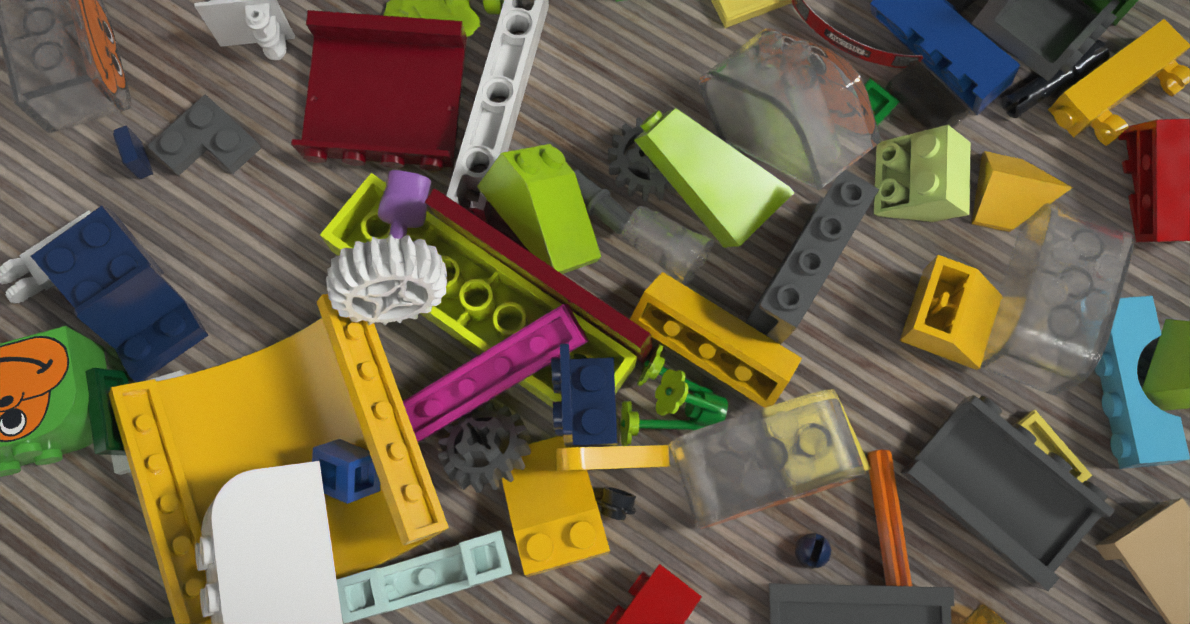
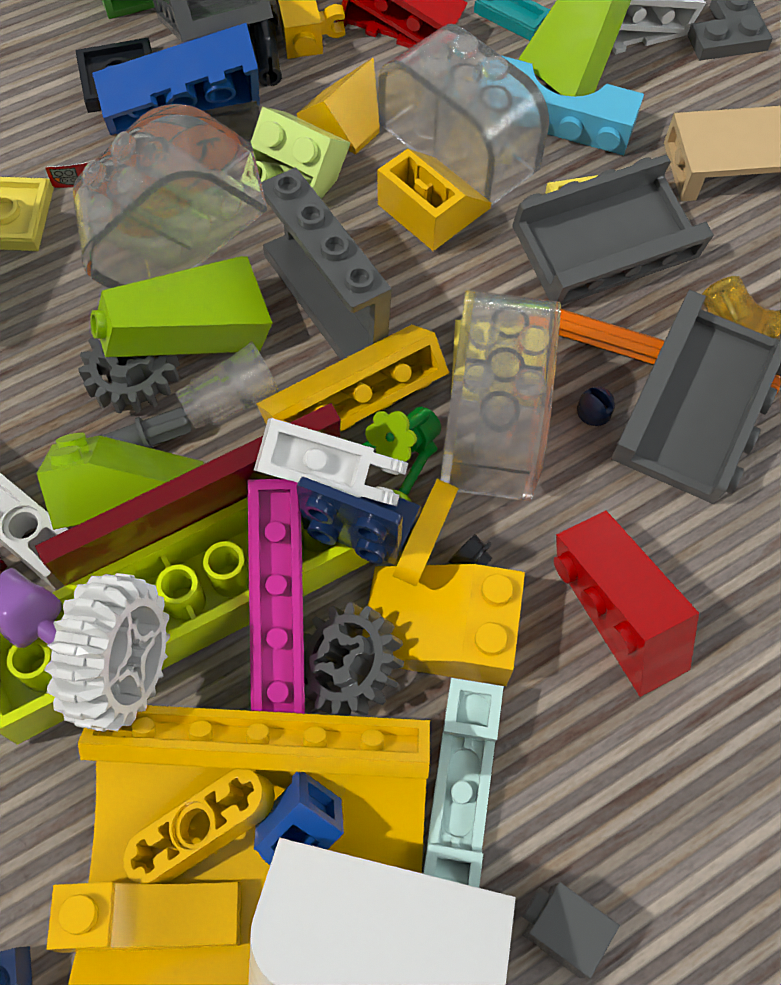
camera: 65 degrees left, 10 degrees down
(250, 398) = (143, 916): none -> yellow slope
(312, 386) = (174, 826): none -> yellow beam
(597, 357) = (300, 452): none -> white hinge

